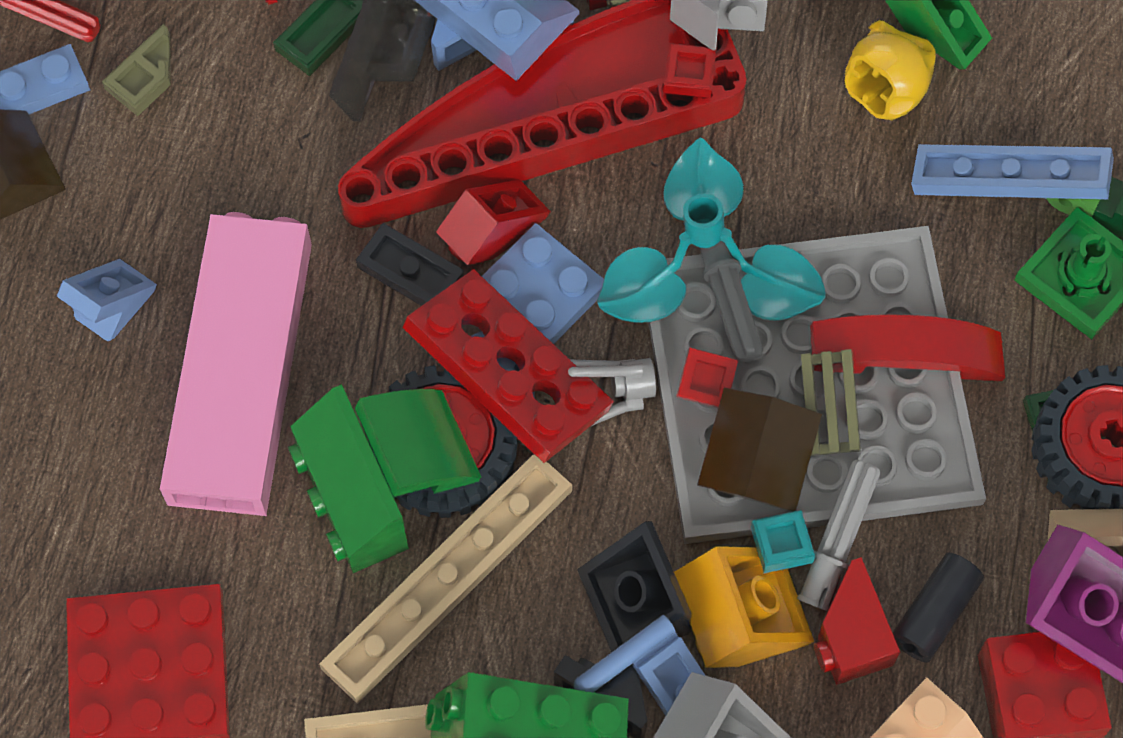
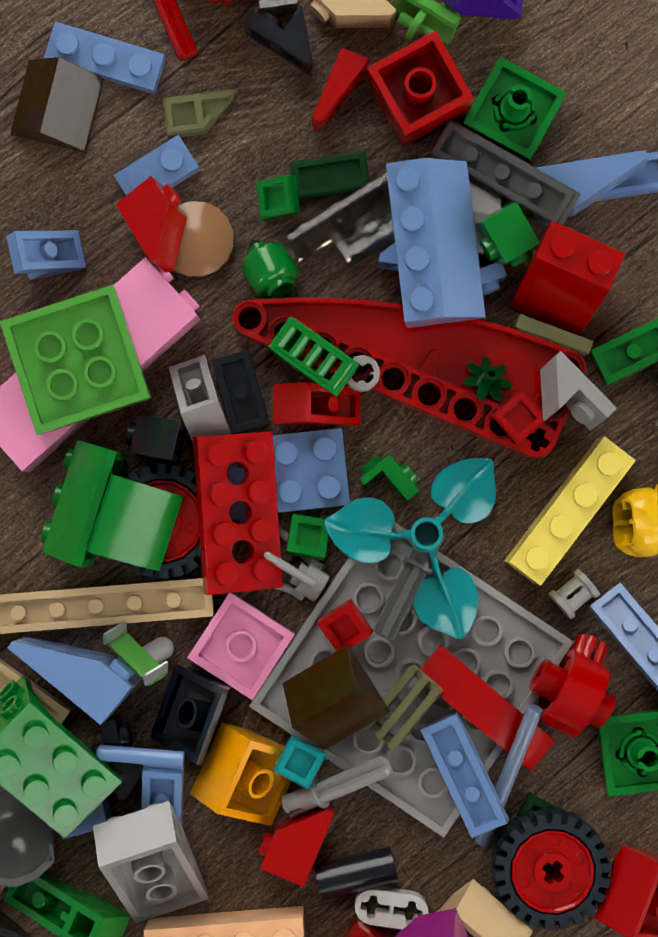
camera: 45 degrees right, 20 degrees up
(152, 149) = (166, 164): none -> medium blue plate
(189, 179) = (155, 221): none -> red slope
(225, 348) = (75, 360): none -> bright green plate
(243, 174) = (205, 240): none -> medium nougat dish
(290, 79) = (278, 197): none -> green tile
(338, 140) = (269, 270): none -> green head
(368, 360) = (156, 438): none -> black slope
(374, 303) = (199, 398): none -> light grey slope
(430, 150) = (296, 331): none -> green slope
(495, 636) = (85, 676): none -> medium blue slope
(499, 140) = (362, 386): none -> light grey bush
(548, 570) = (142, 660): none -> piece
(595, 342) = (307, 537): none -> green tile
(623, 220) = (401, 477): none -> green bracket
(623, 487) = (241, 645): none -> bright pink plate
(630, 65) = (488, 379): none -> dark green plant
(813, 121) = (569, 510): none -> light yellow brick
(879, 196) = (579, 581): none -> light grey bush
(947, 415) = (464, 774): none -> medium blue plate
(970, 259) = (576, 688): none -> red piece
(988, 388) = (513, 762): none -> sand blue bar
(995, 605) = (393, 898): none -> white beam

